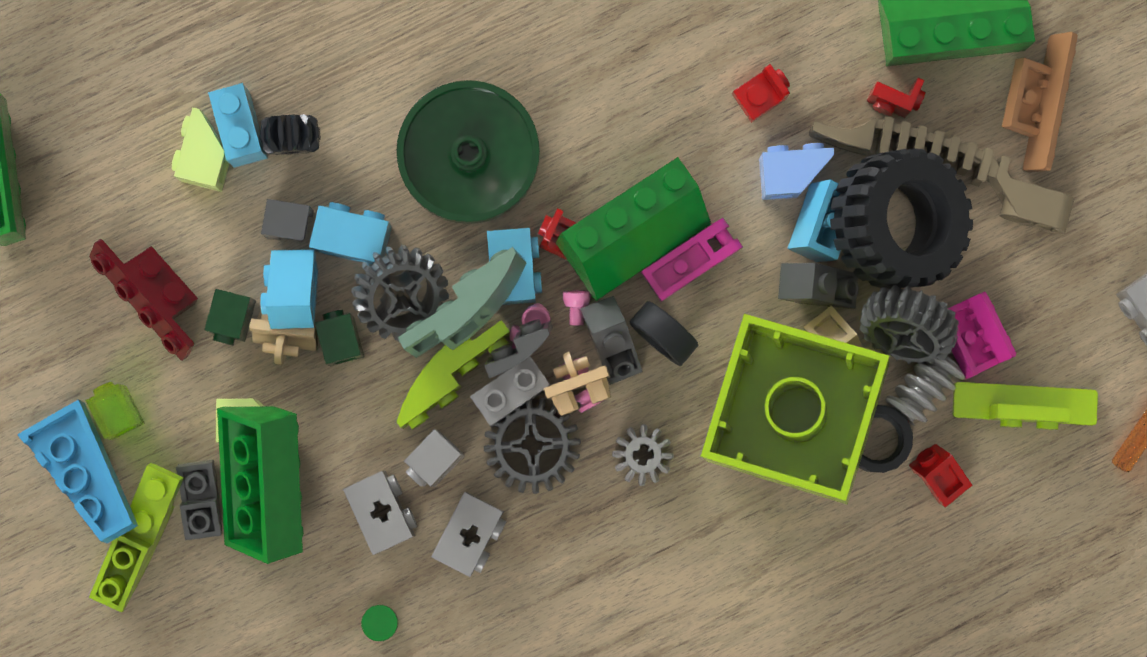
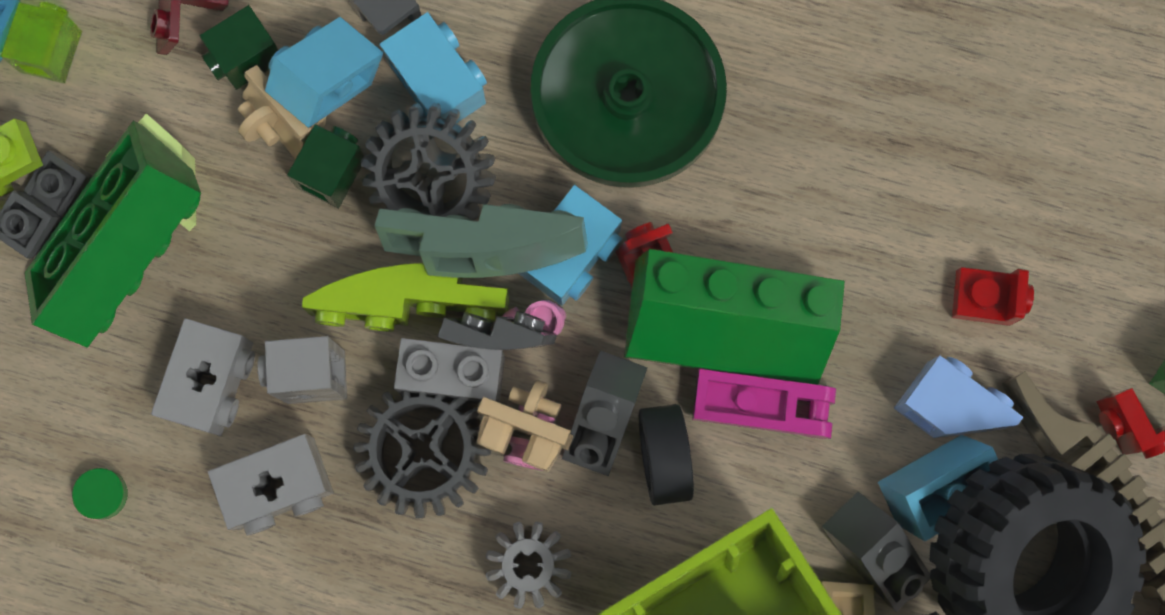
camera: 40 degrees right, 5 degrees down
(575, 301) = (603, 339): bright pink piece -> none

